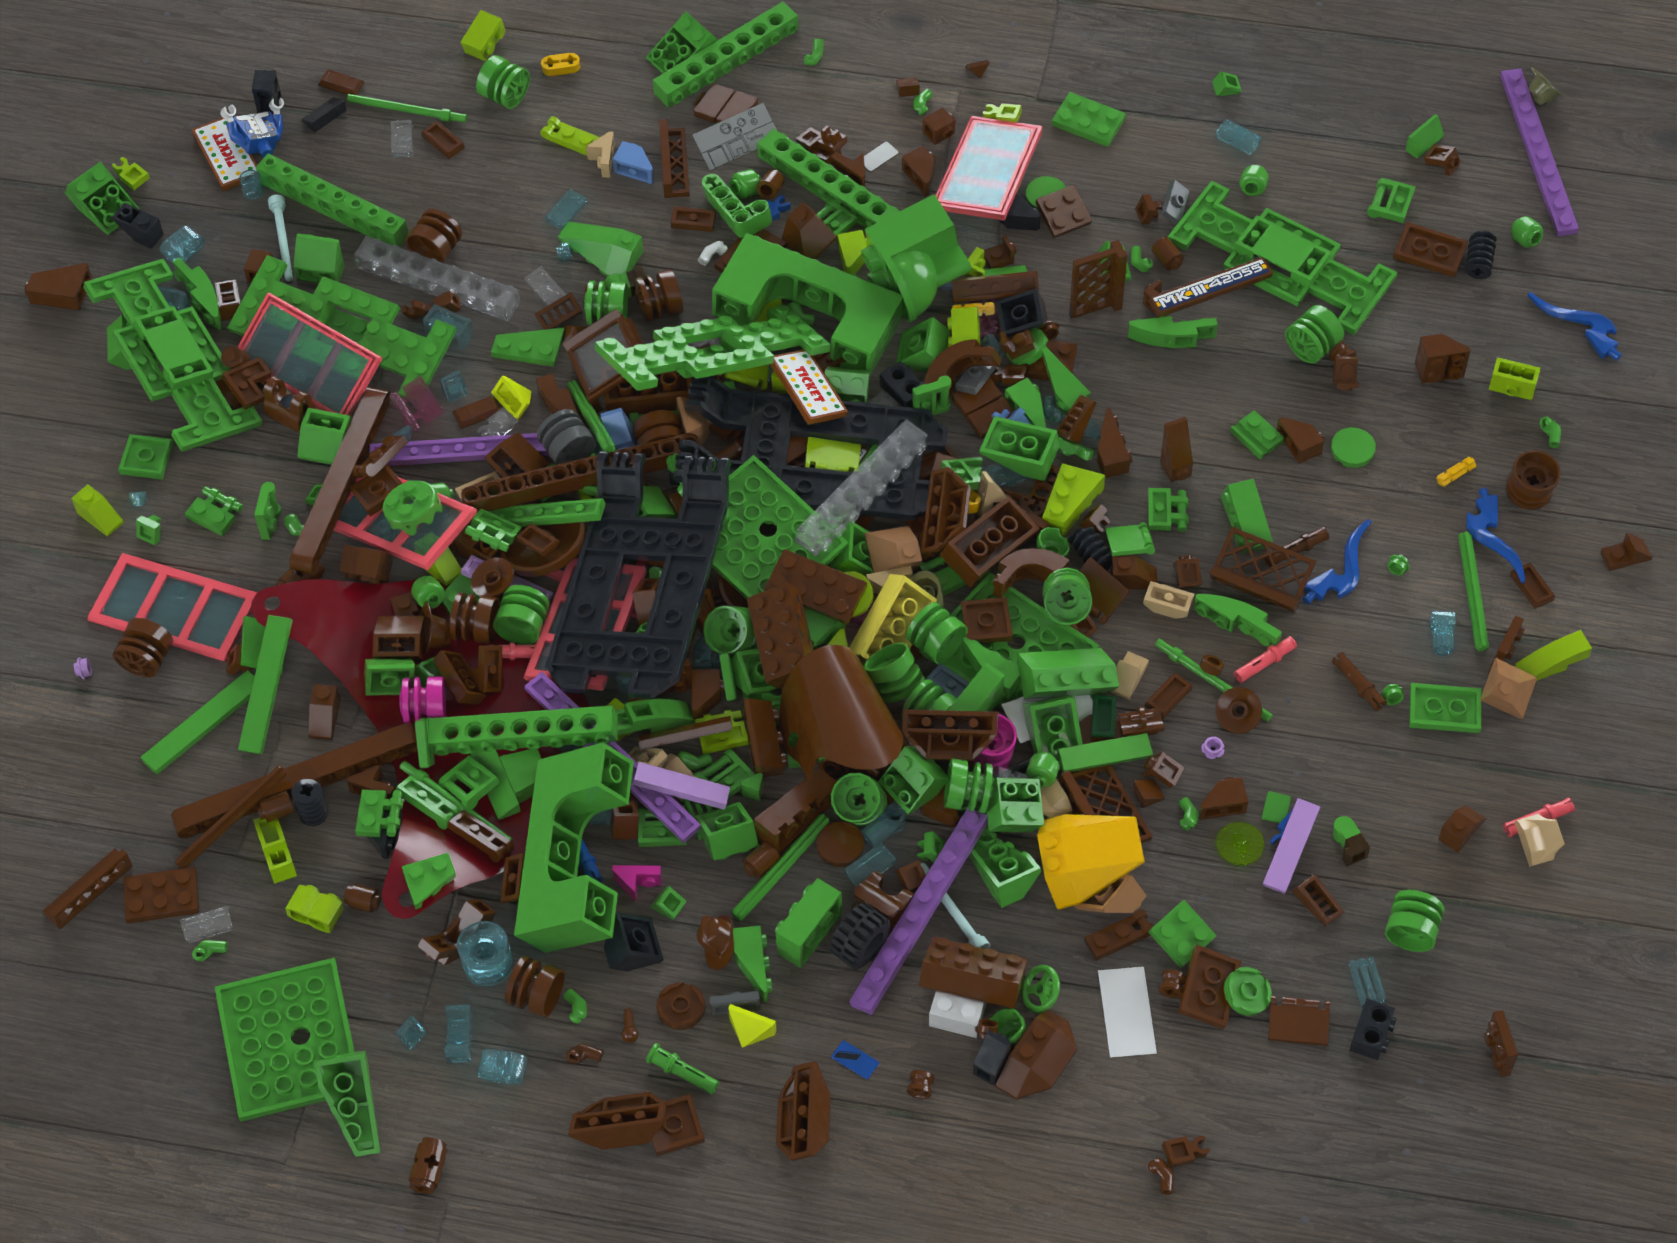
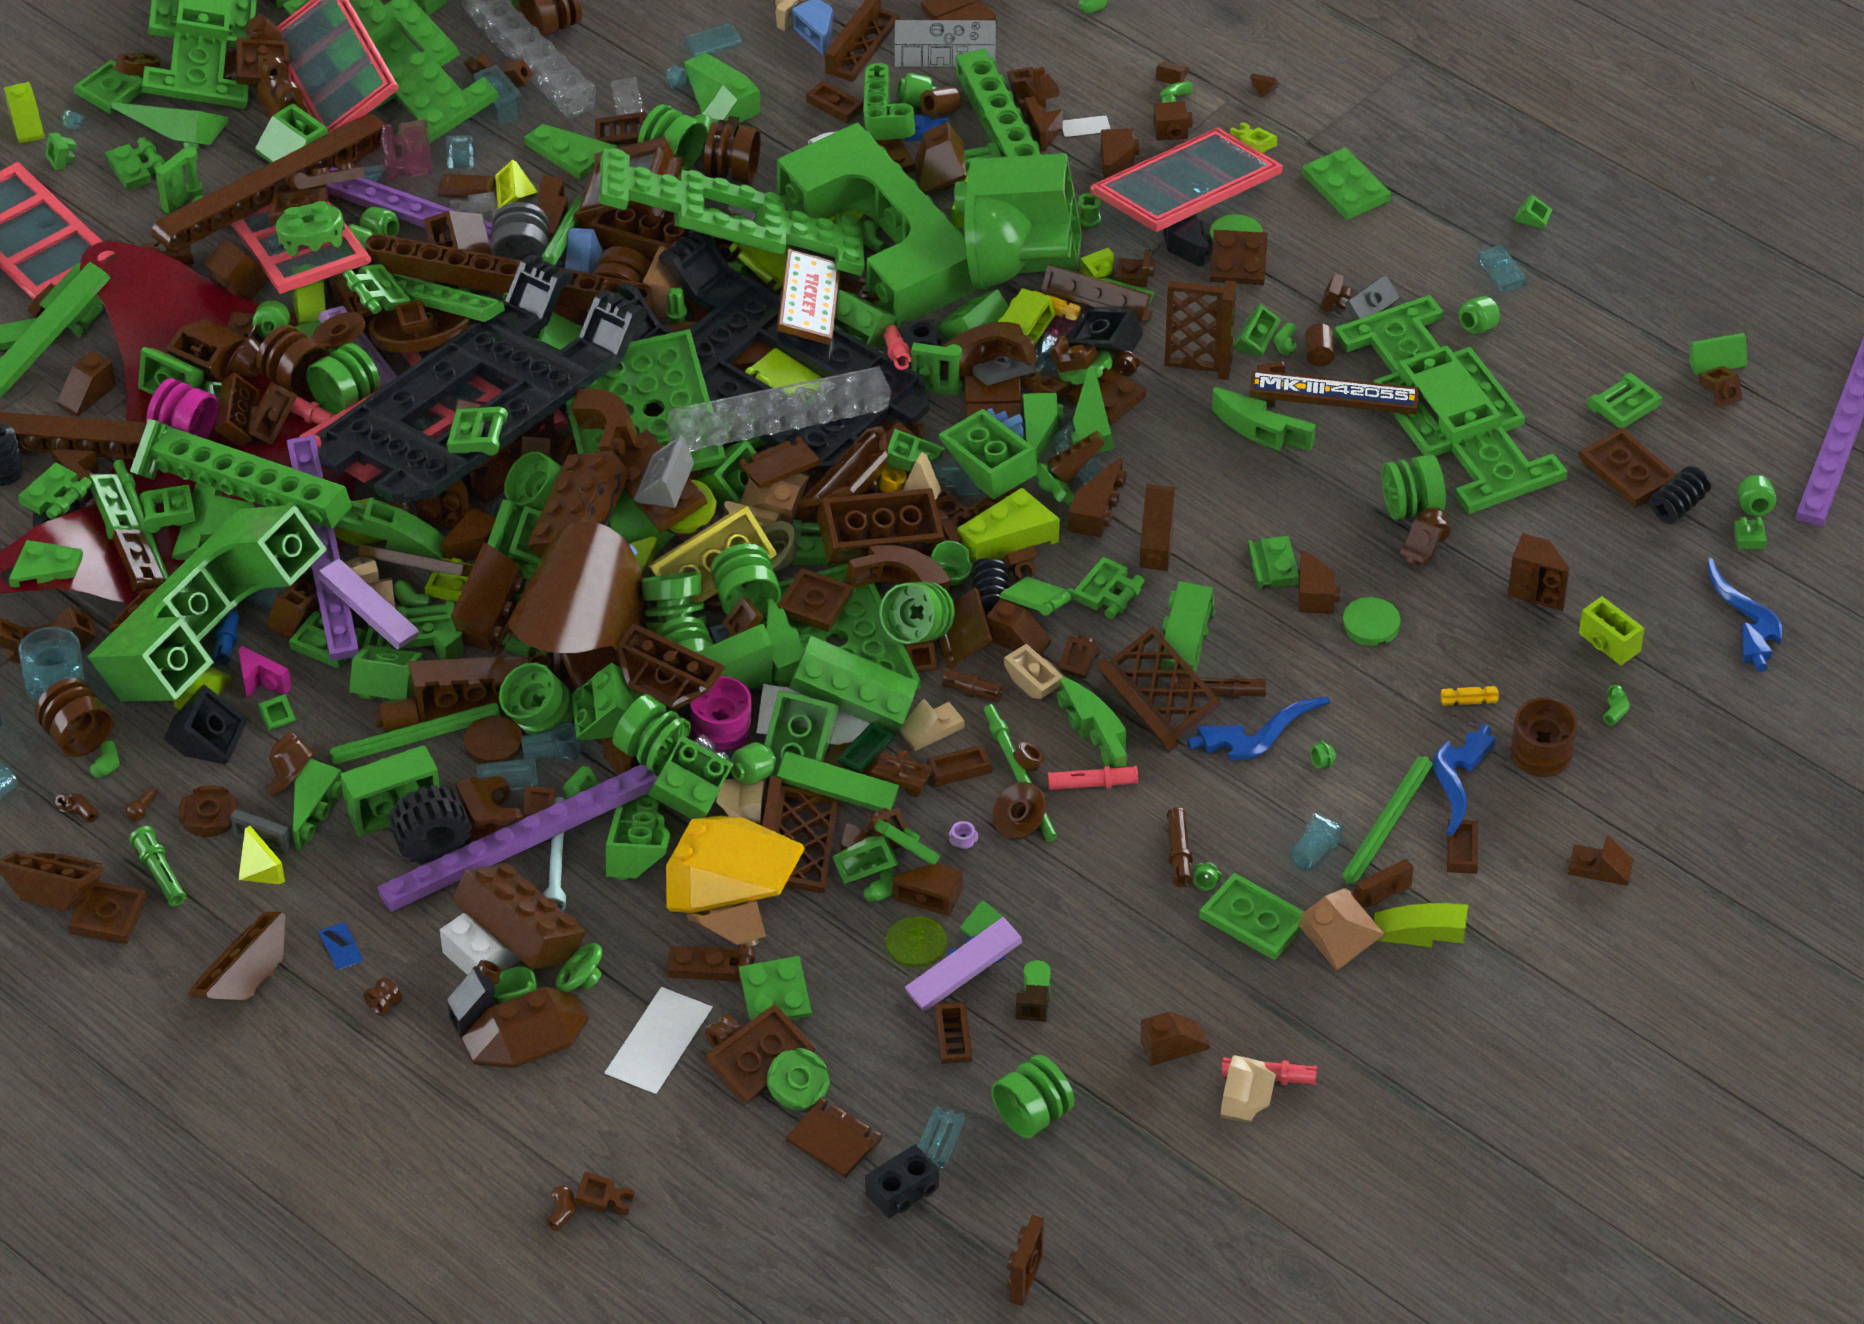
camera: 30 degrees right, 10 degrees down
(154, 428) = (134, 63): none -> reddish brown beam
(236, 462) = (180, 125): none -> bright green wedge
(442, 472) = (380, 221): none -> bright green head
(669, 616) = (468, 428): none -> bright green plate
(715, 439) = (676, 309): none -> bright green axle
(751, 549) = (605, 411): none -> reddish brown arch
(829, 581) = (666, 475): none -> light grey slope
(889, 528) = (779, 463): none -> reddish brown piece
(898, 398) = (897, 349): none -> coral pin
(957, 664) = (742, 617): none -> reddish brown bracket
(1133, 630) = (972, 685): none -> reddish brown pin
(1168, 800) = (865, 858): none -> bright green slope
(1192, 774) = (908, 840): none -> bright green plate
(1539, 261) = (1750, 534): none -> bright green tile

